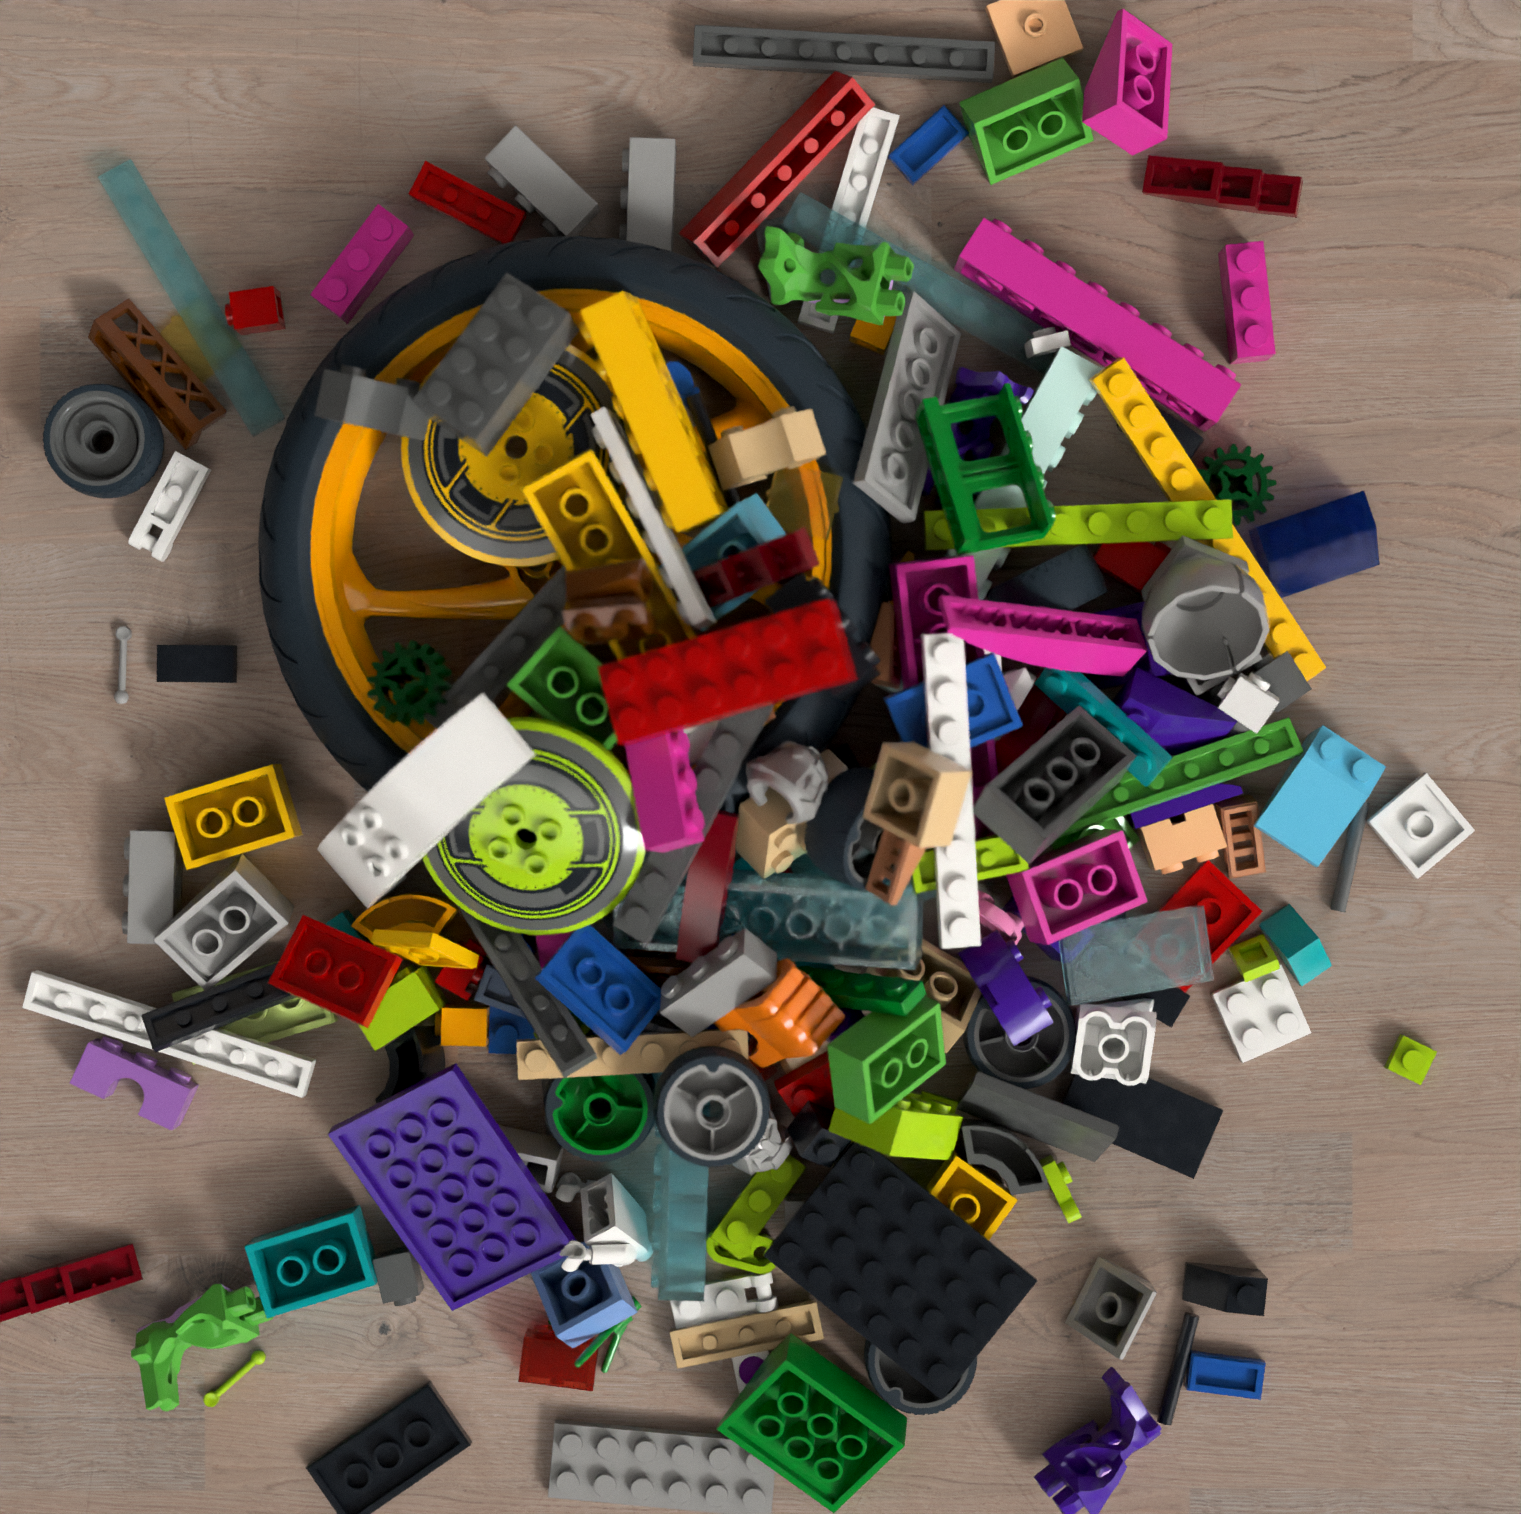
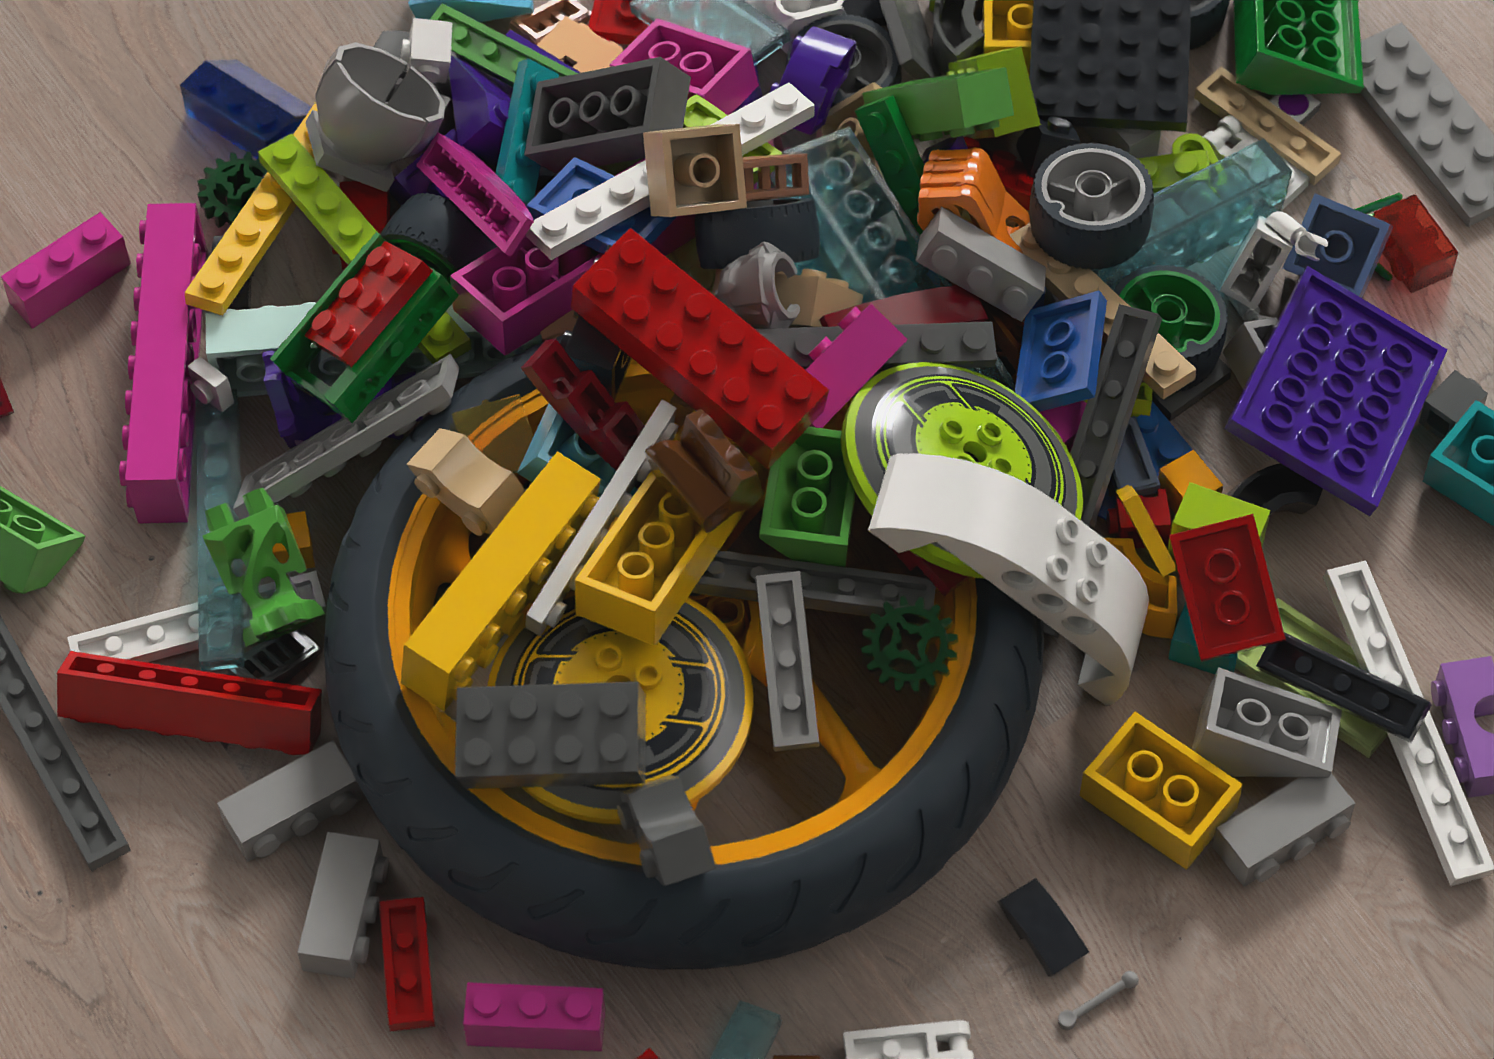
camera: 120 degrees left, 30 degrees down
(455, 584) = (787, 661): none -> light grey plate
(928, 145) = (78, 605): blue tile -> none
(992, 478) = (368, 303): none -> red plate

